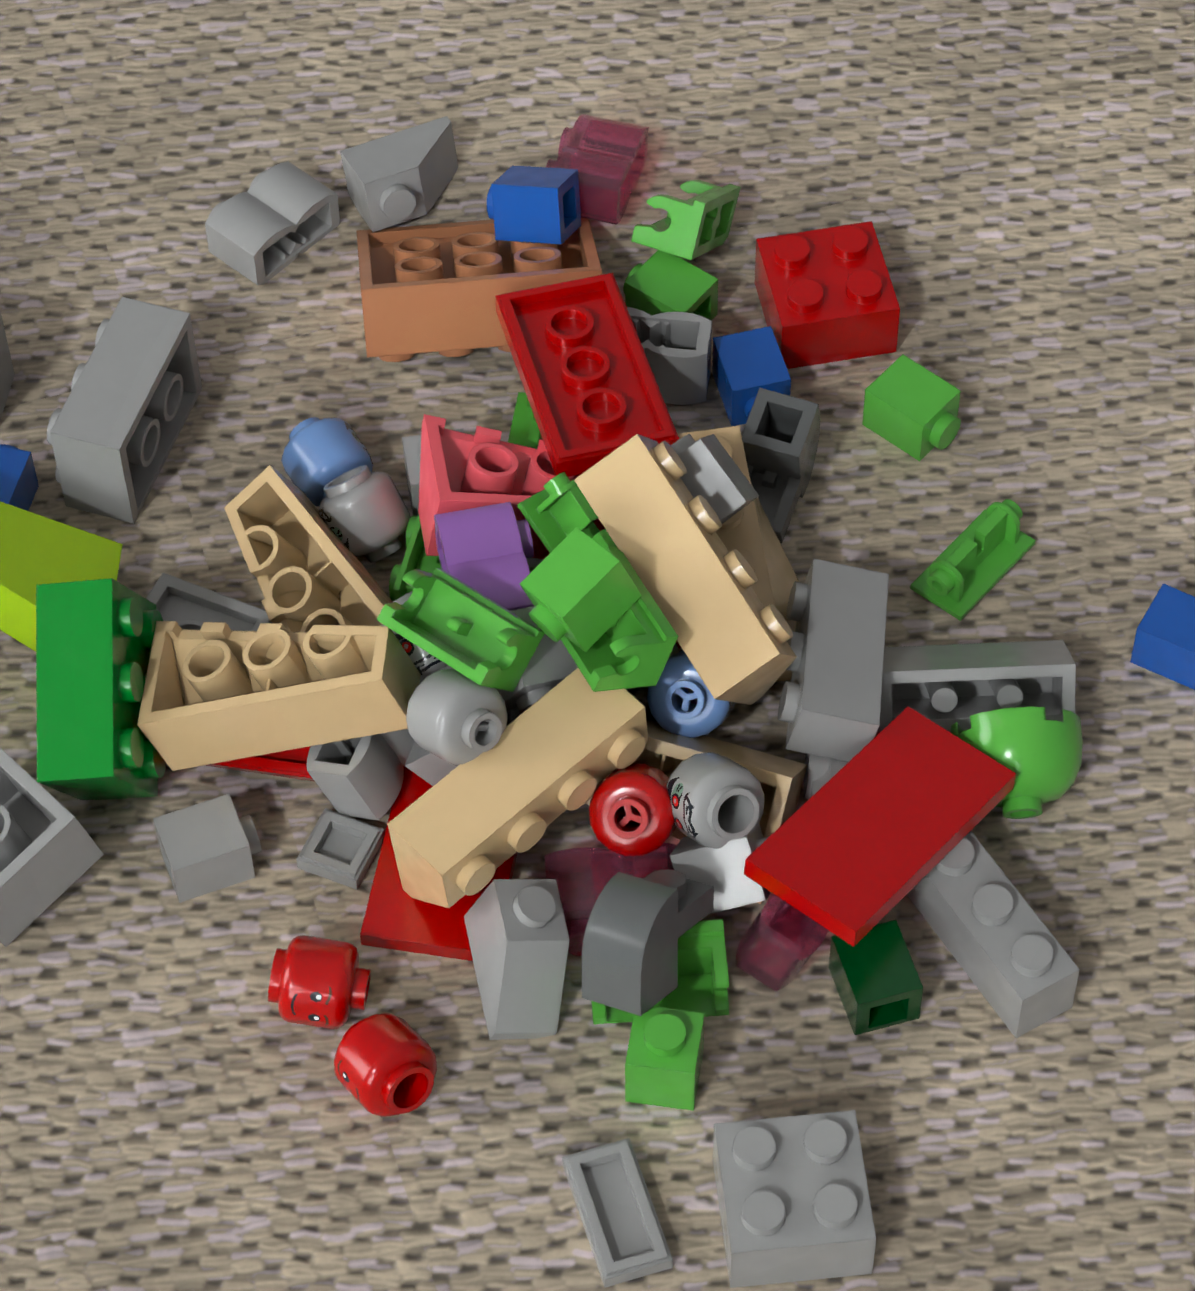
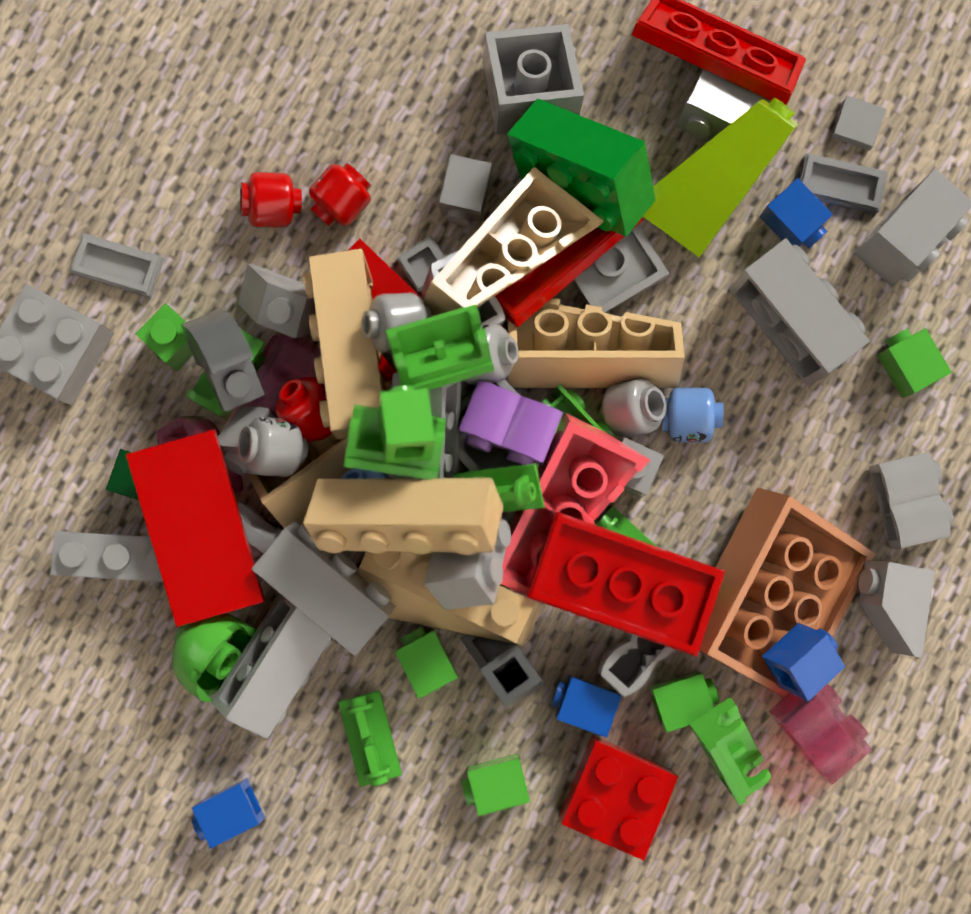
camera: 125 degrees right, 30 degrees up
(96, 288) = (913, 361): none -> bright green brick
(839, 534) = (425, 661): none -> bright green brick

